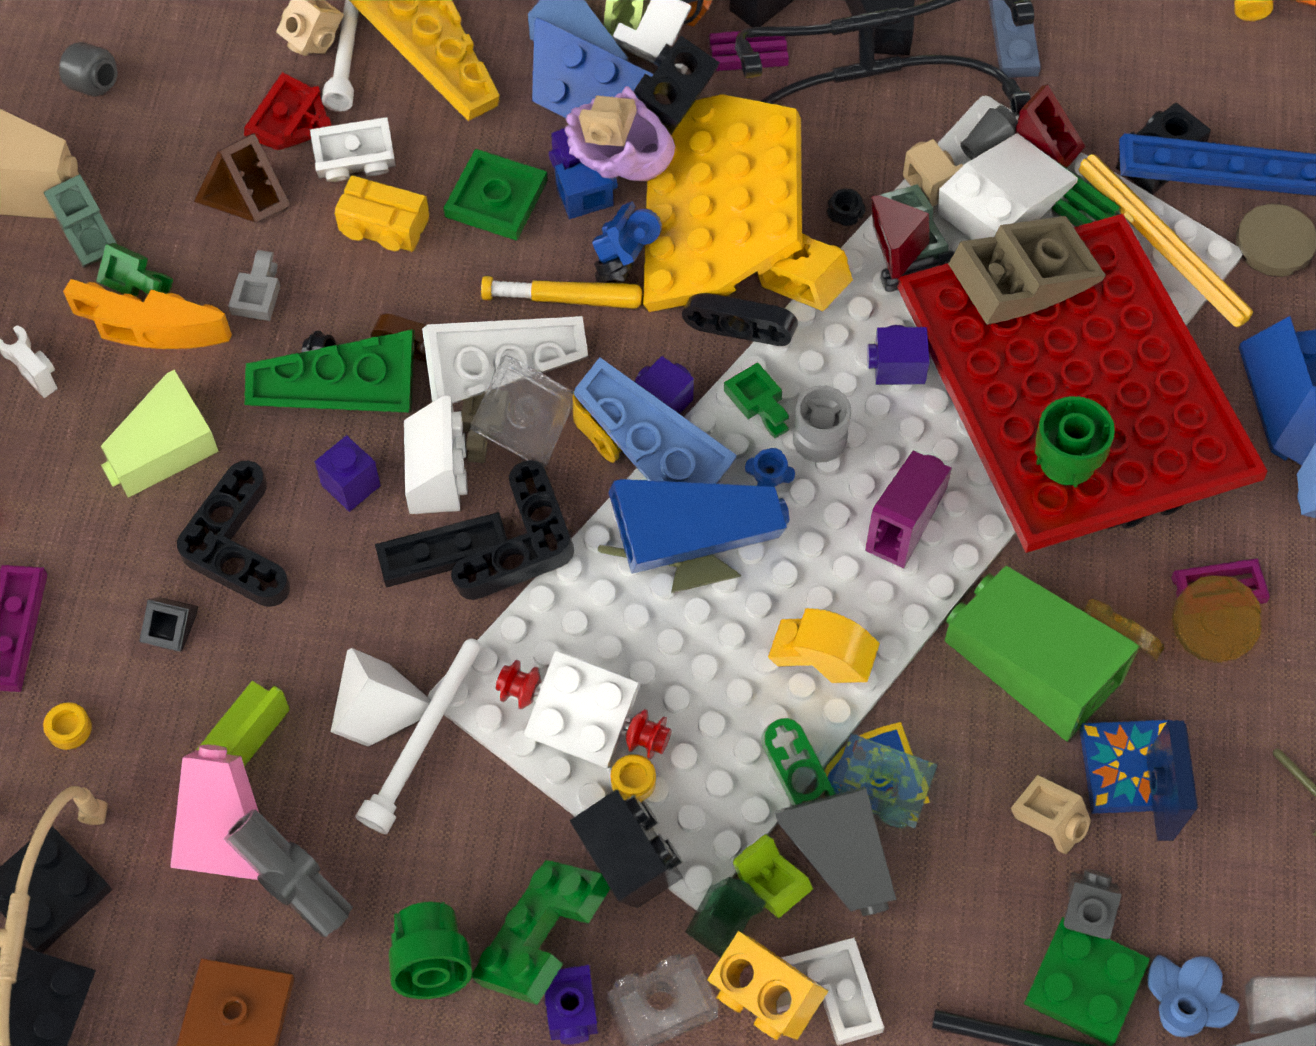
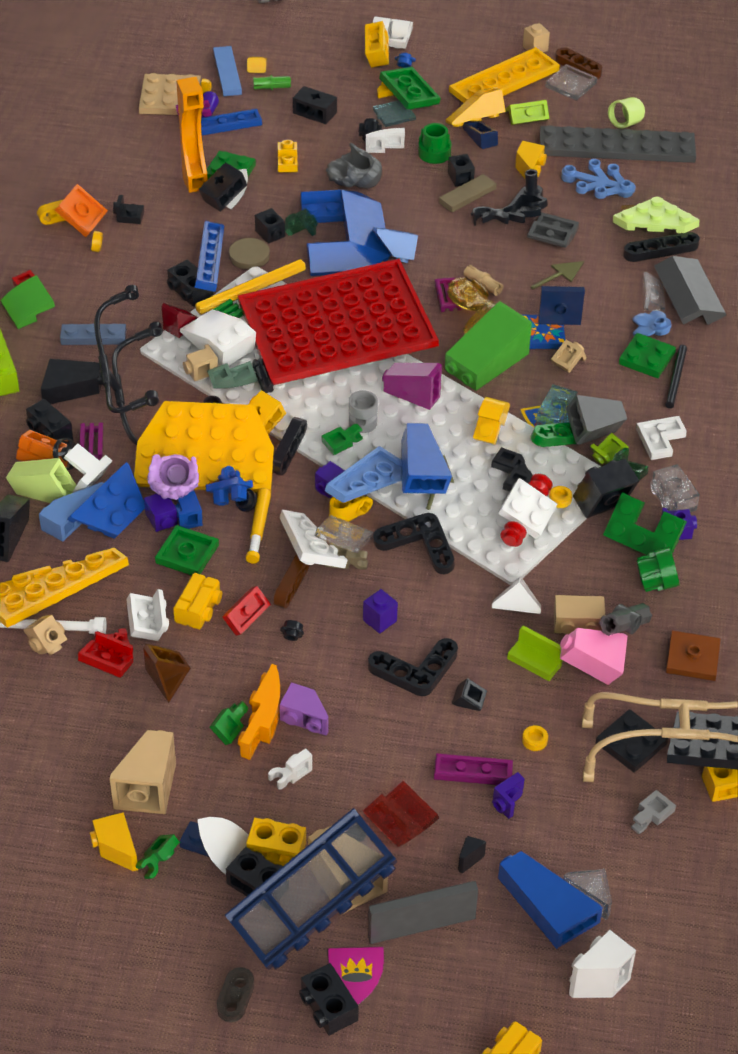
camera: 90 degrees left, 15 degrees down
(80, 219) = (194, 743): sand green slope -> none
(88, 69) = (60, 754): dark grey head -> none
(141, 367) = (304, 709): none -> medium lavender slope
(157, 438) = (351, 700): yellowish green slope -> none
(256, 292) = (247, 661): light grey plate -> none
(321, 799) = (577, 612): none -> tan brick
(347, 376) = (315, 616): green wing -> none
(359, 281) = (246, 610): none -> plate
(380, 809) = (534, 576): white piece -> none
(435, 458) = (374, 568): white slope -> none
(437, 549) = (424, 577): black tile -> none
(608, 120) = (172, 468): tan bracket -> none
(679, 88) = (136, 449): black brick -> none
(688, 707) = (514, 465): none -> black tile
(770, 980) = (664, 443): yellow brick -> none
(773, 459) = (384, 437): blue plate -> none
(899, 355) = (318, 383): dark purple brick -> none
(900, 233) = (246, 374): dark red slope -> none
(991, 130) = (175, 340): dark grey cone -> none
(1025, 268) = (276, 327): dark tan slope -> none
(1073, 439) = (390, 309): green piece -> none
(1092, 903) = (615, 340): dark grey bracket -> none
(1273, 651) = (483, 278): none -> tan pin

